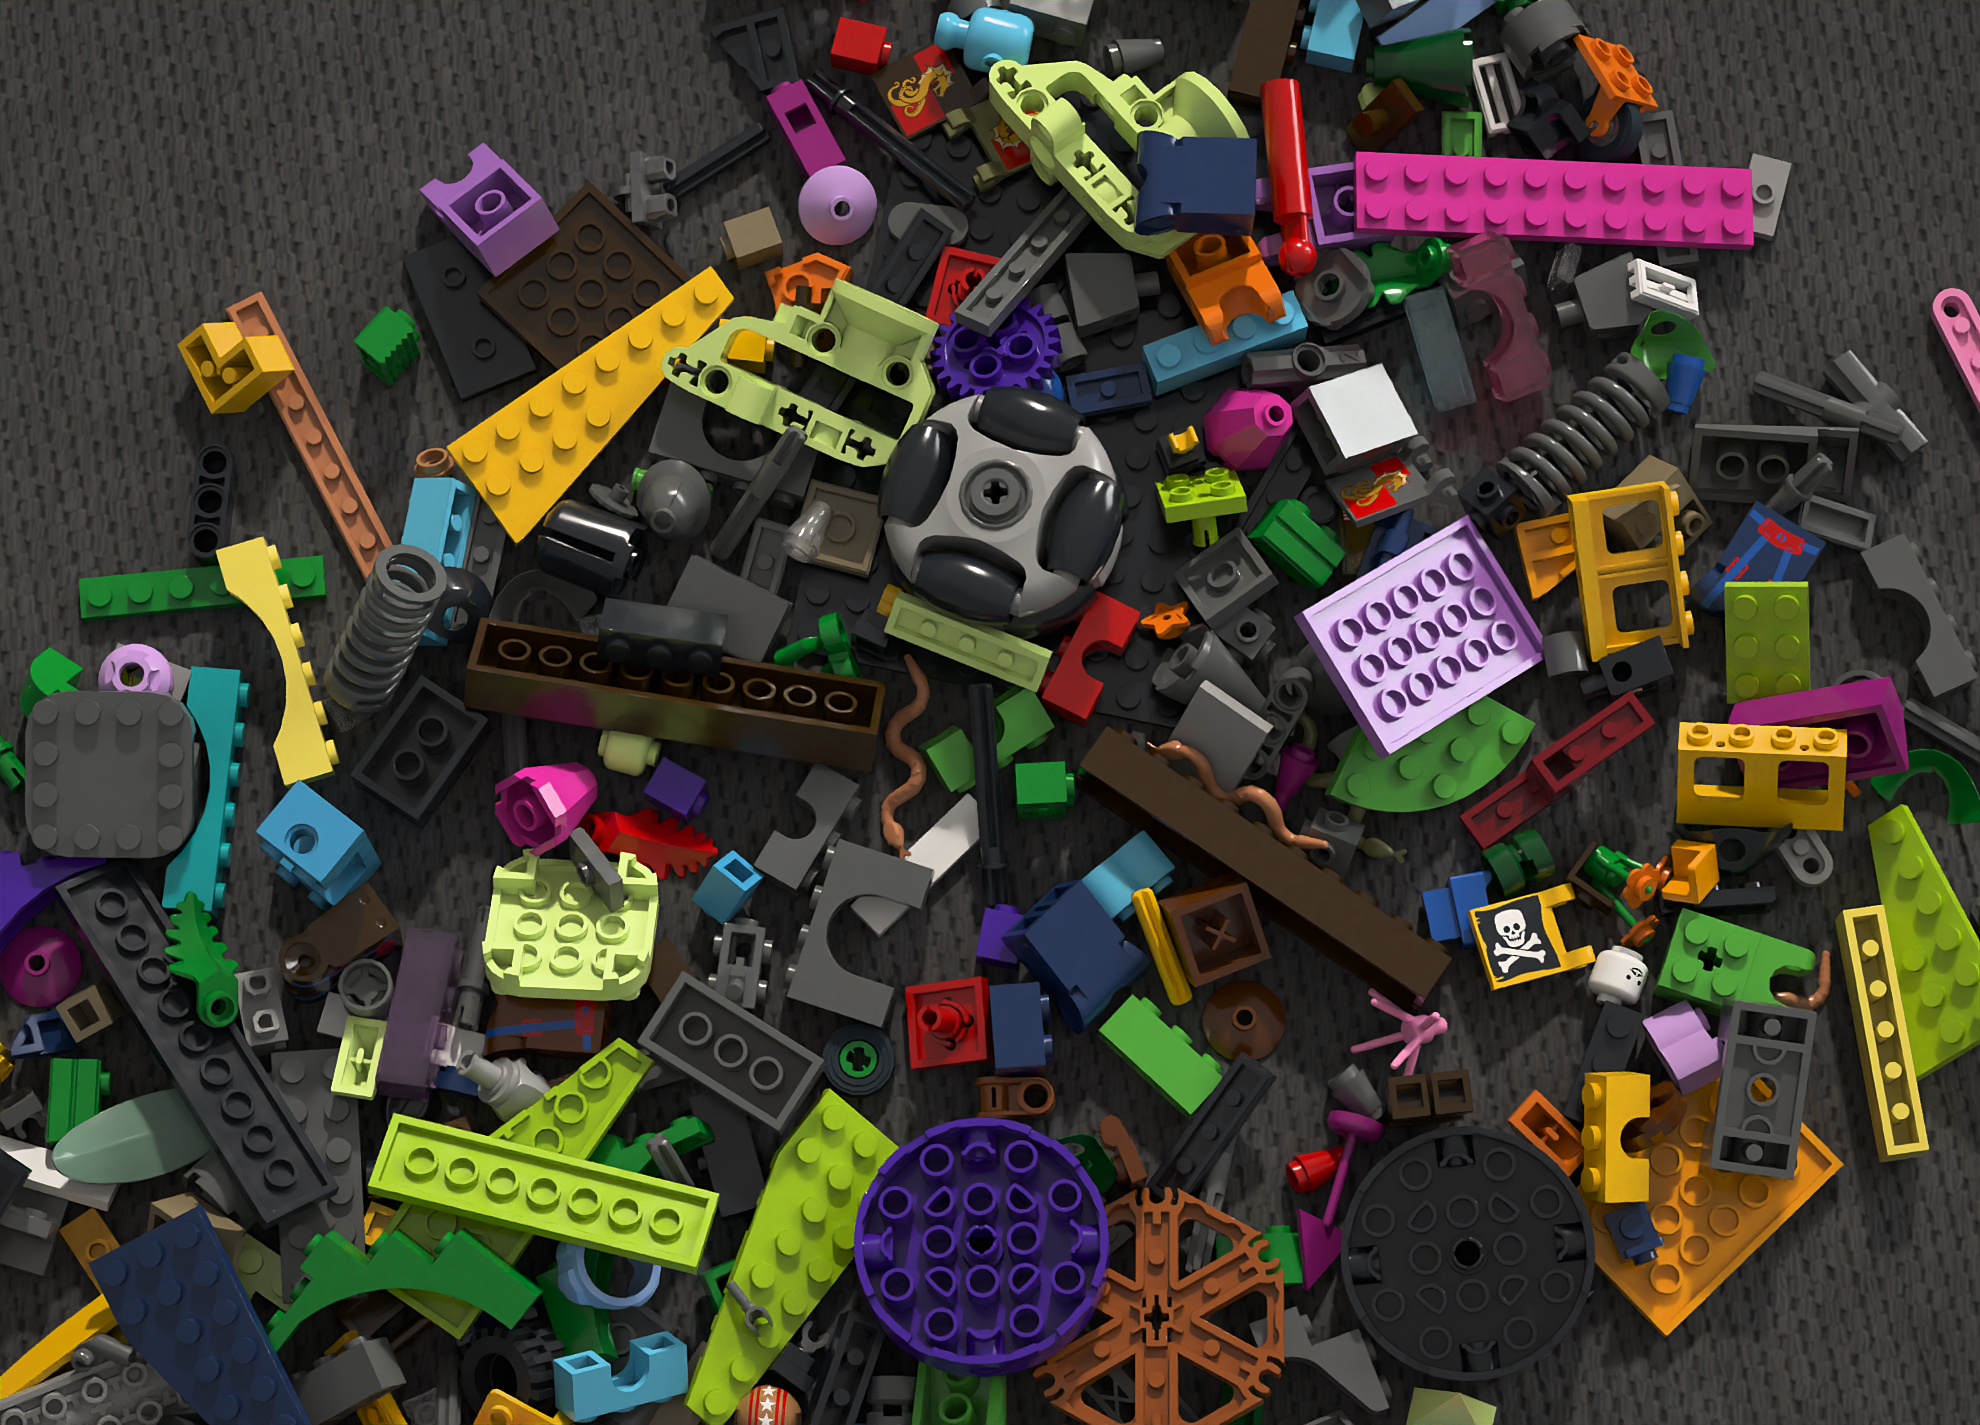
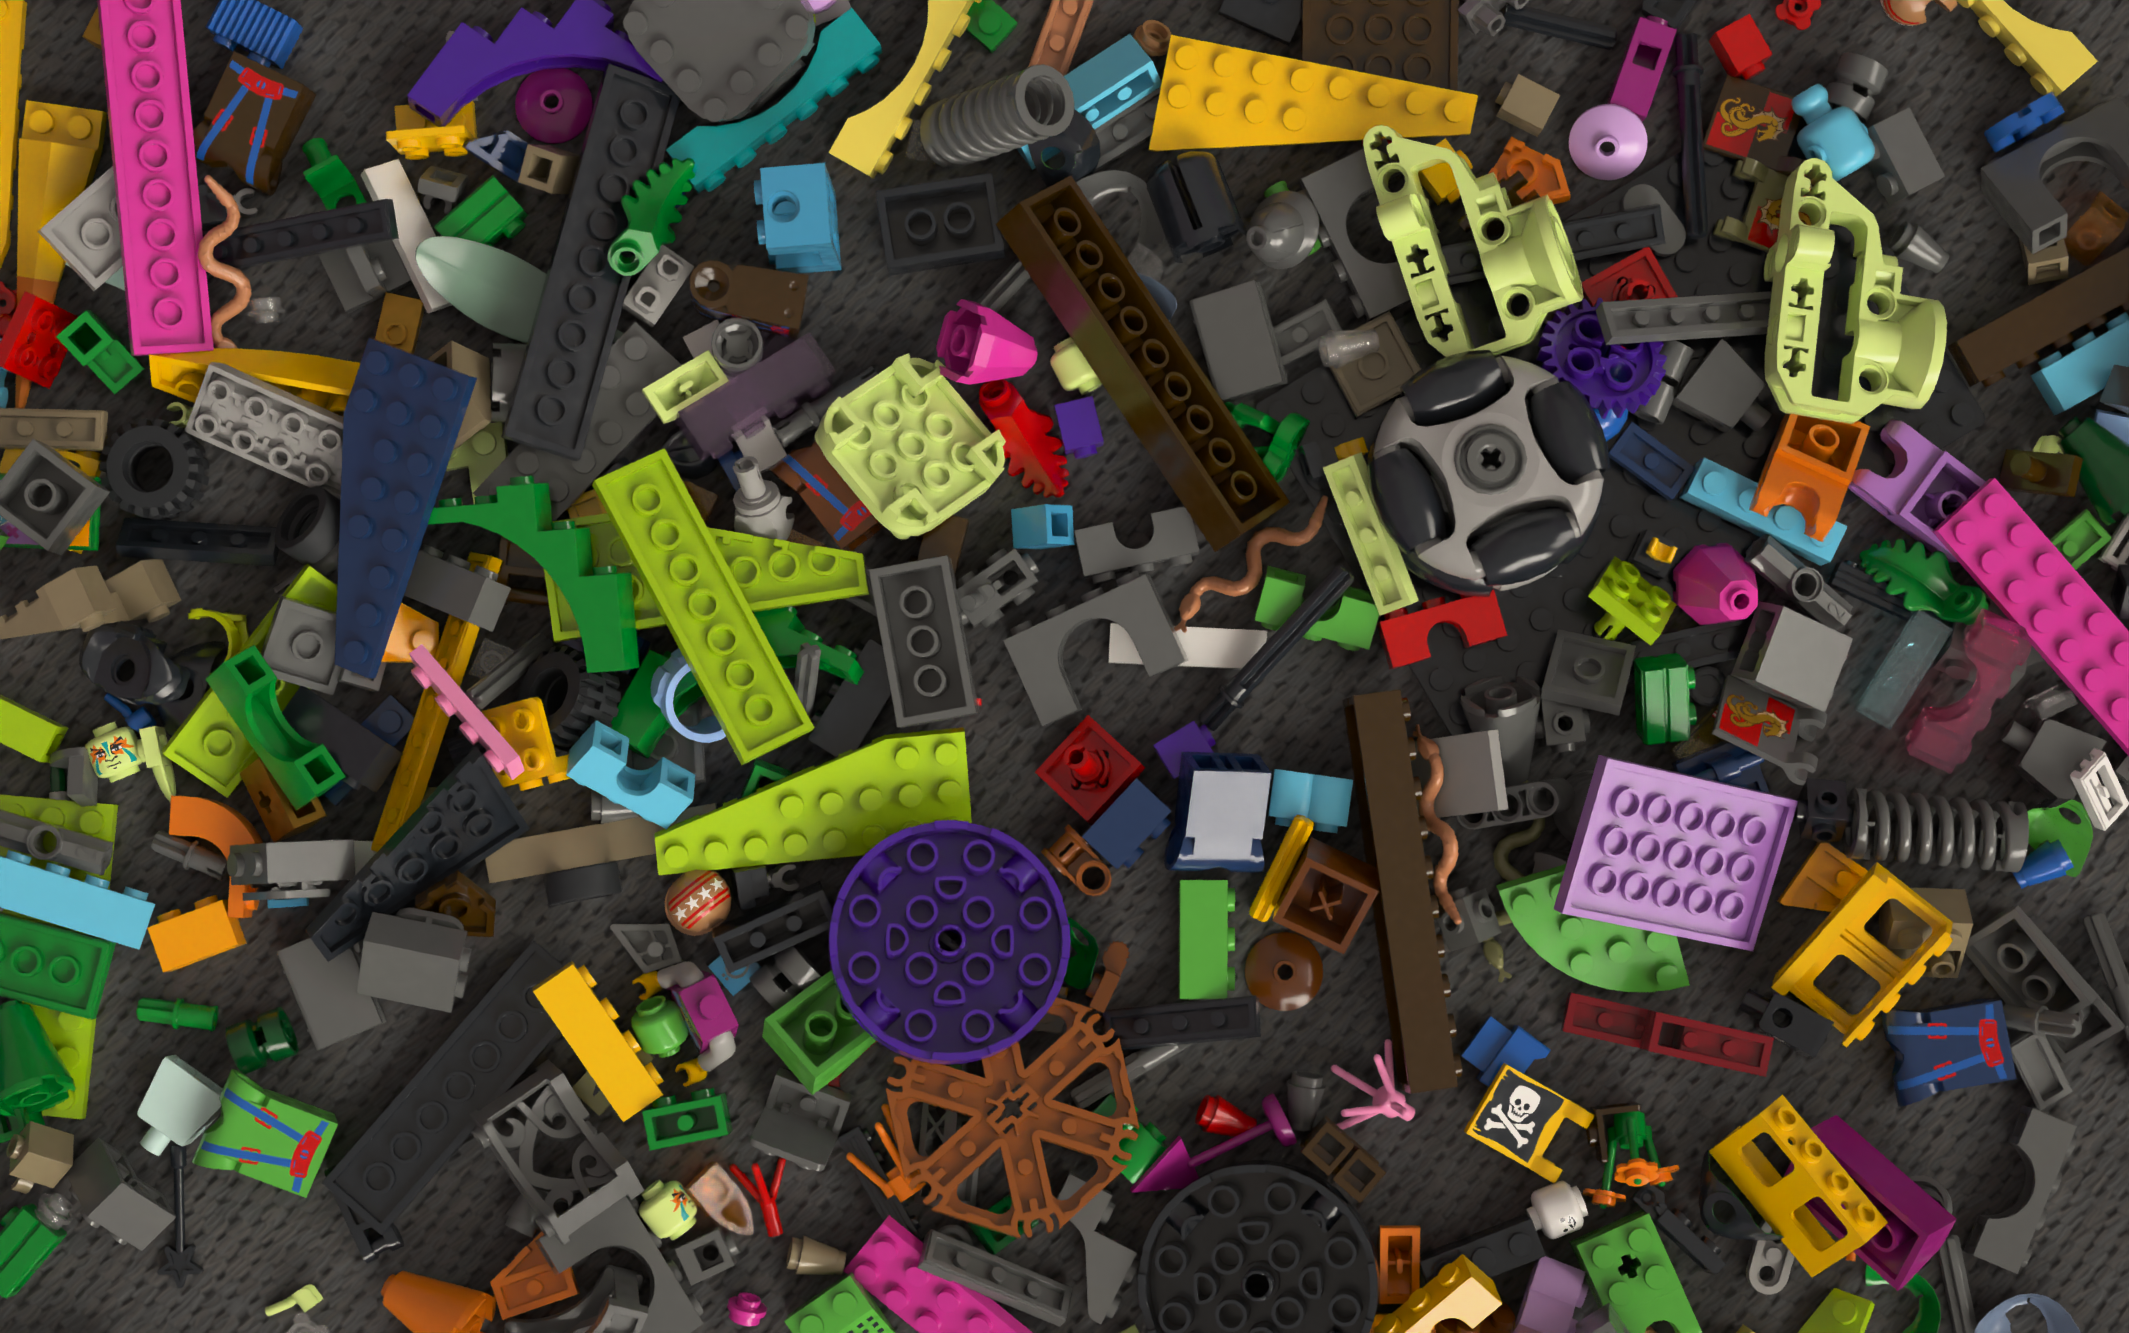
camera: 50 degrees right, 10 degrees up
(100, 1349) = (321, 401): dark grey arm -> none
(595, 869) = (967, 424): dark grey plate -> none
(614, 500) = (1245, 188): dark grey piece -> none
(662, 637) = (1172, 316): black brick -> none
(751, 1311) = (759, 818): dark grey hand -> none
(758, 492) = (1343, 284): dark grey axle -> none
(875, 1047) = (987, 725): black bush -> none
(1043, 791) = (1314, 684): green brick -> none
(1167, 620) = (1521, 658): orange plate -> none
(1195, 184) = (1858, 389): dark blue piece -> none
(1288, 173) = (1932, 444): red piece -> none
(1294, 769) = (1496, 846): magenta cone -> none
(1347, 302) = (1881, 572): dark grey plate -> none
(1518, 862) = (1574, 1064): dark green wheel -> none
(1565, 655) = (1758, 962): dark grey brick -> none
(1694, 871) = (1681, 1198): light orange panel -> none
(1766, 639) = (1903, 1099): lime plate -> none

